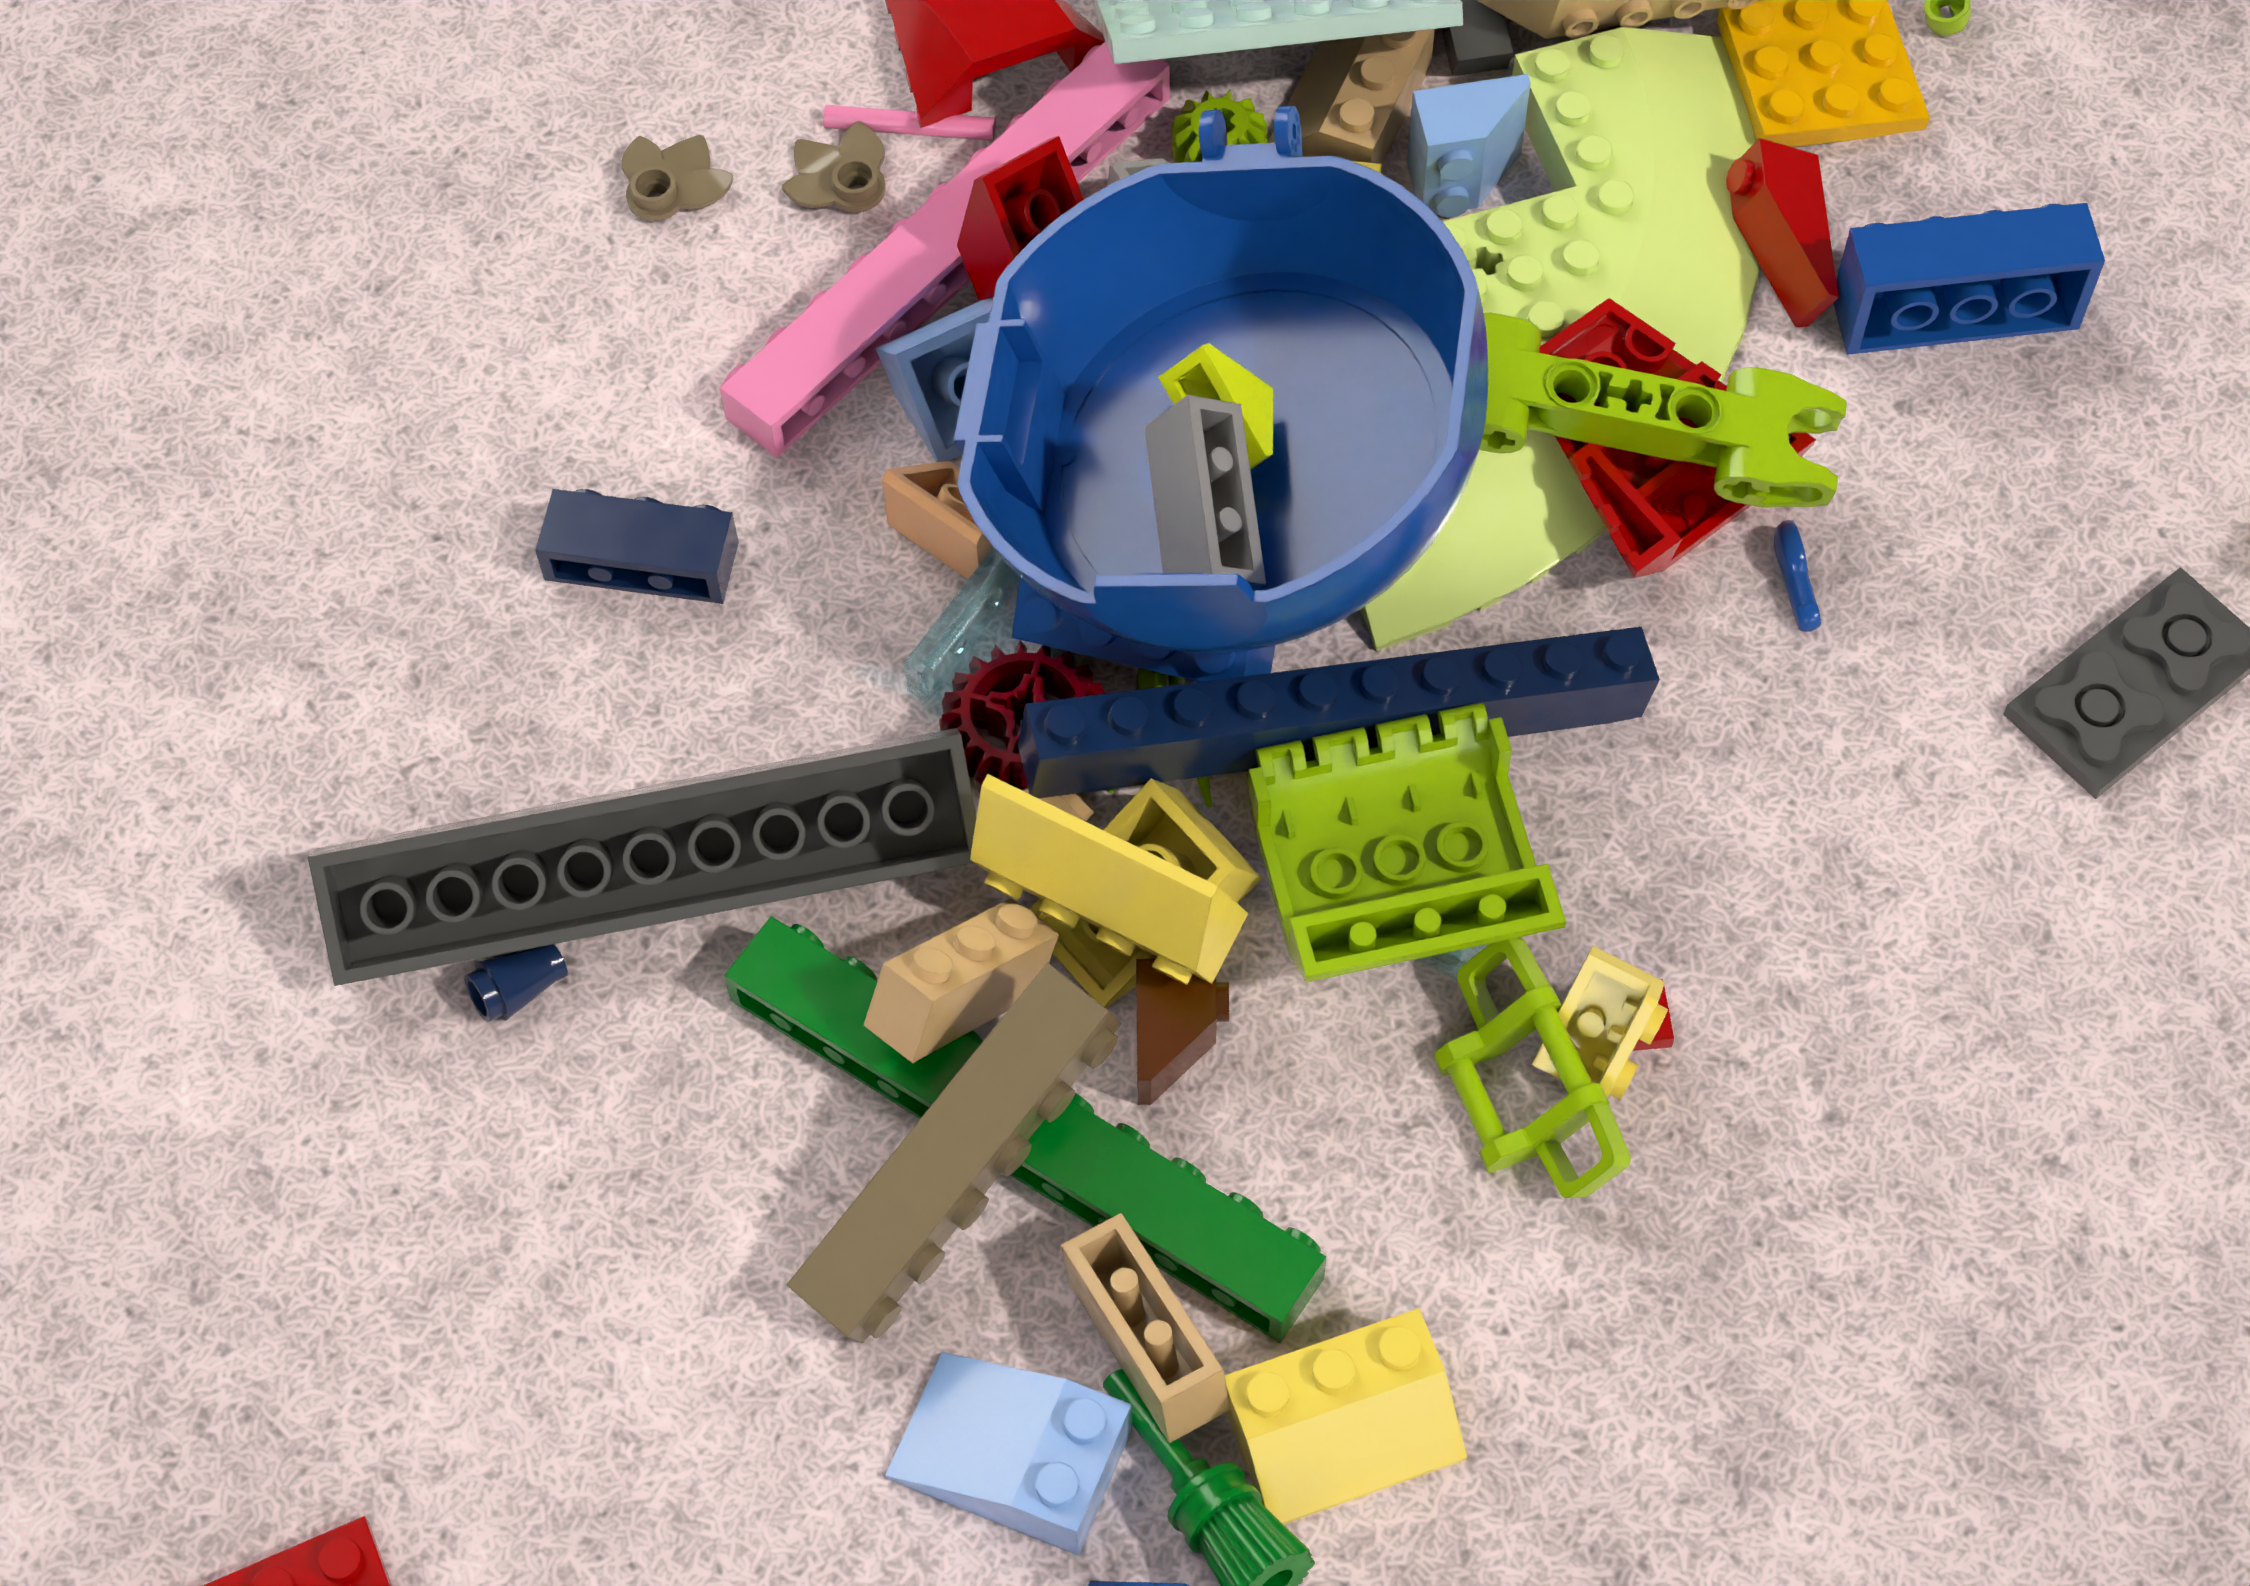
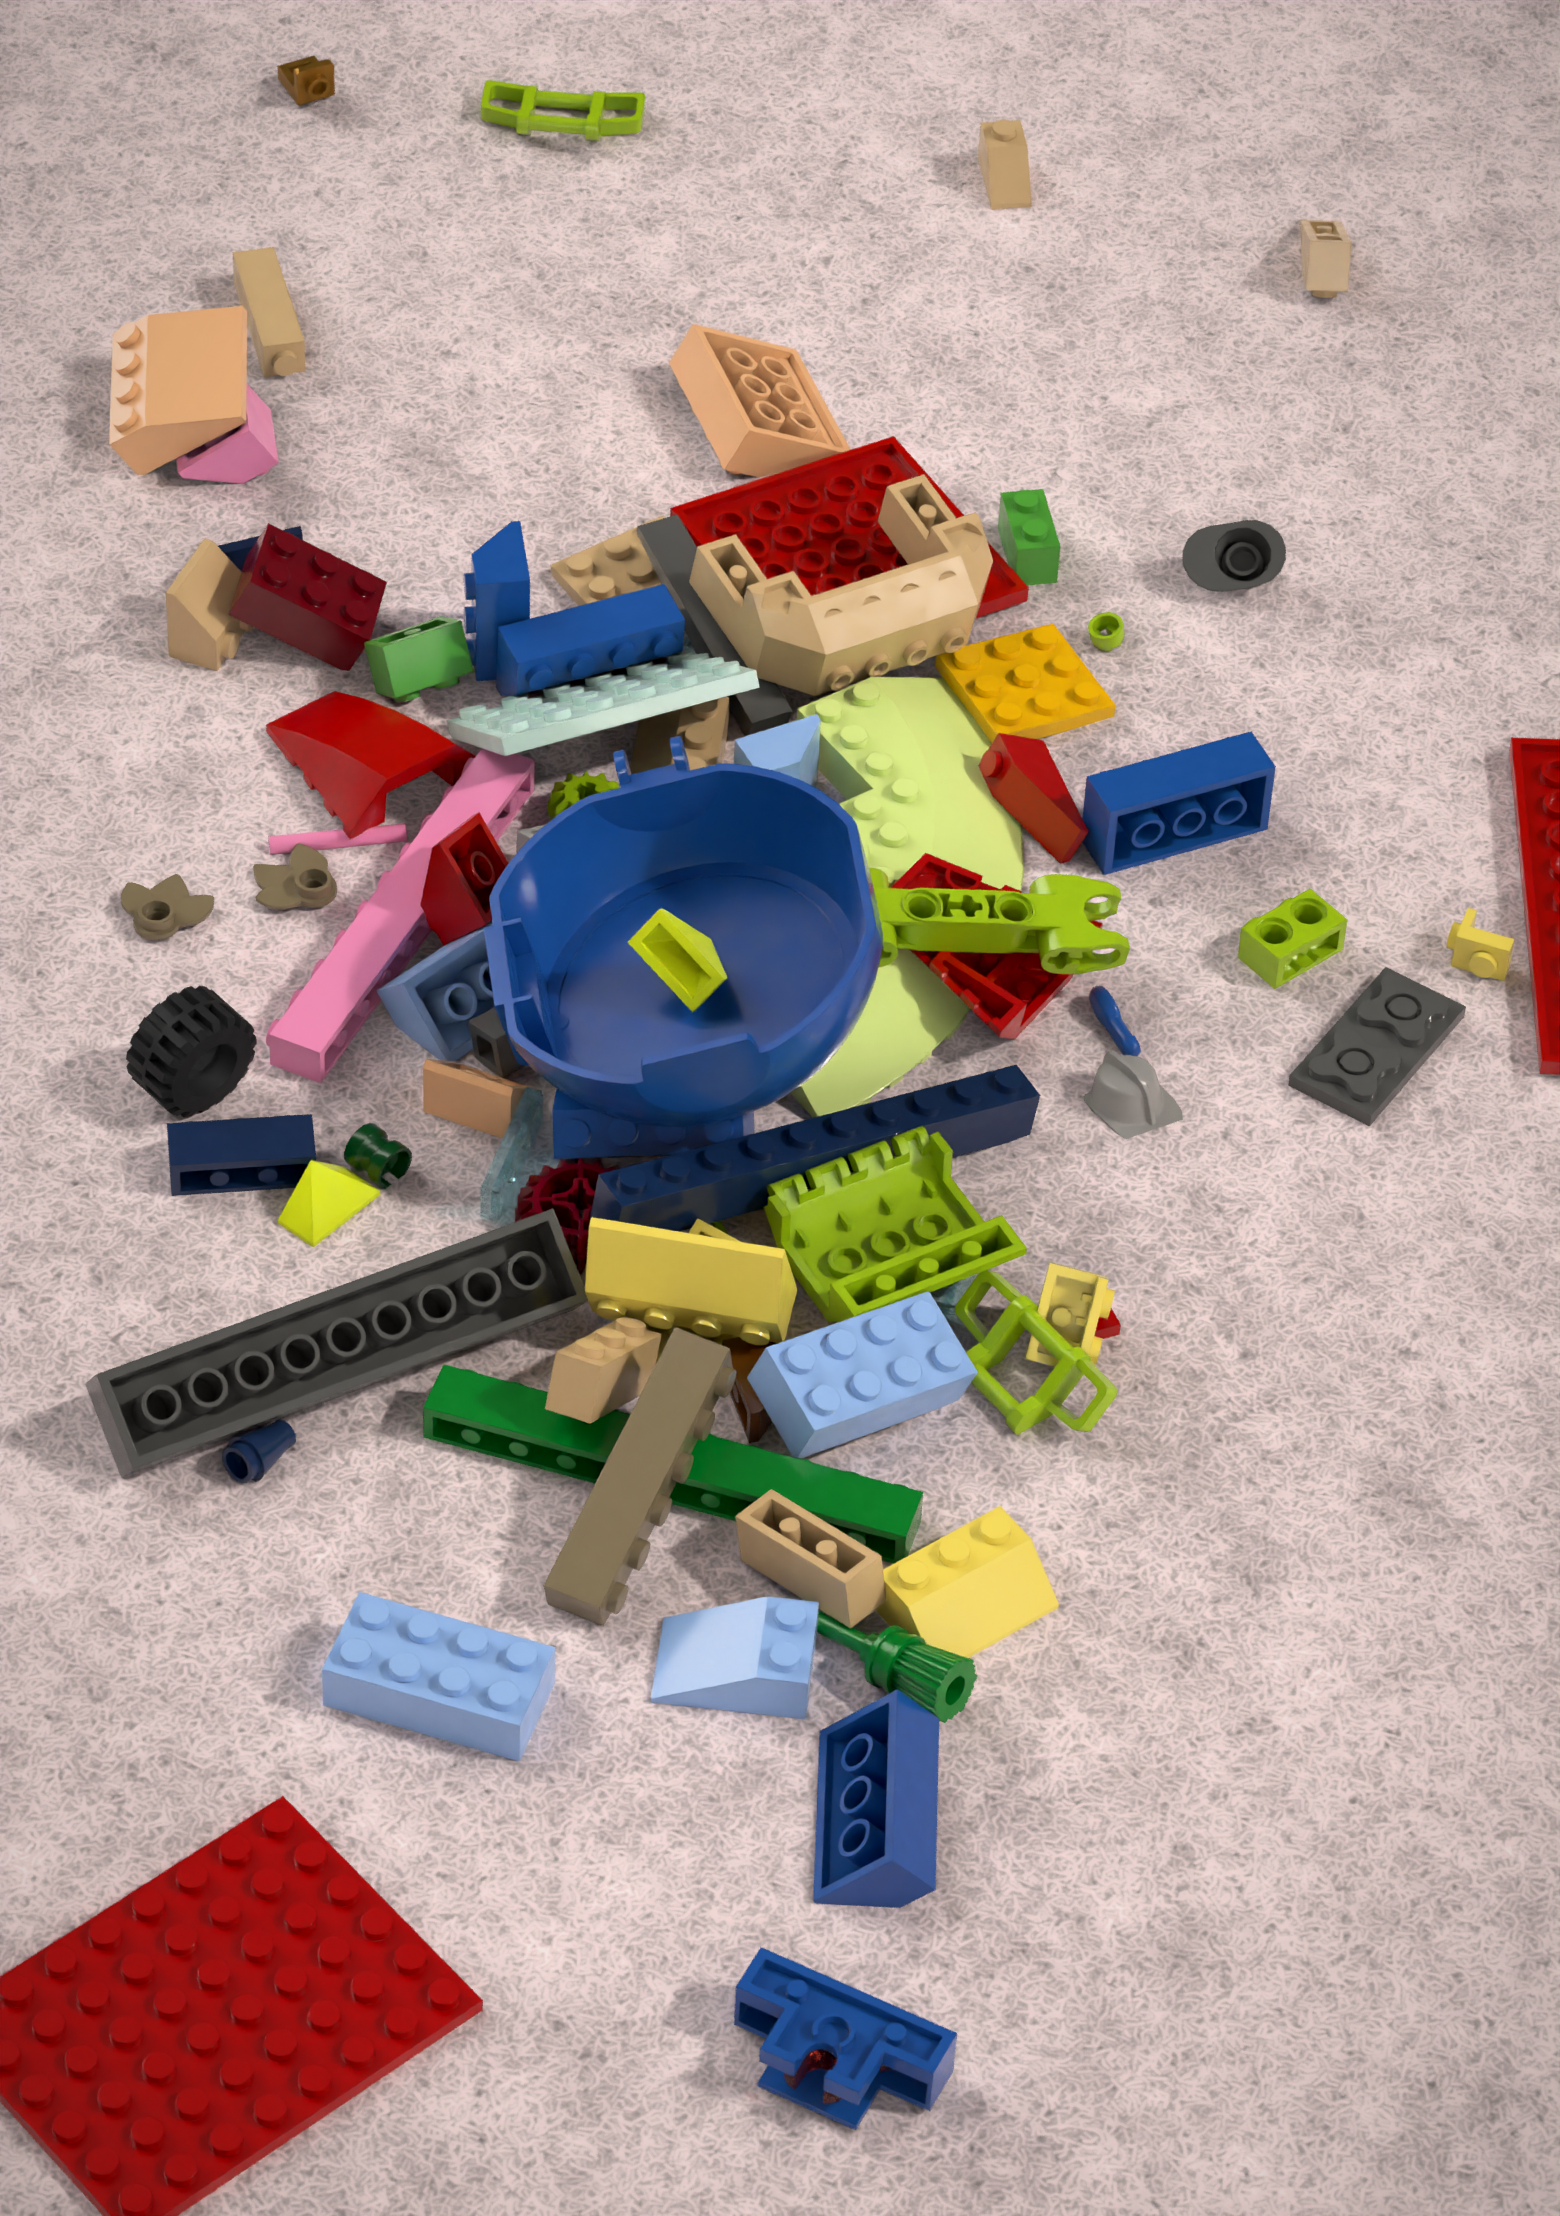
camera: 20 degrees left, 15 degrees down
(611, 395) = (191, 1051): none -> black tyre
(616, 1385) = (439, 1676): none -> light blue brick
(721, 629) = (325, 1201): none -> neon yellow slope
(799, 576) = (374, 1153): none -> dark green wheel
(1204, 490) = (684, 994): light grey brick -> none
(1298, 1057) = (861, 1375): none -> light blue brick
(1788, 693) = (1130, 1096): none -> light grey piece
(2068, 509) = (1292, 938): none -> lime brick

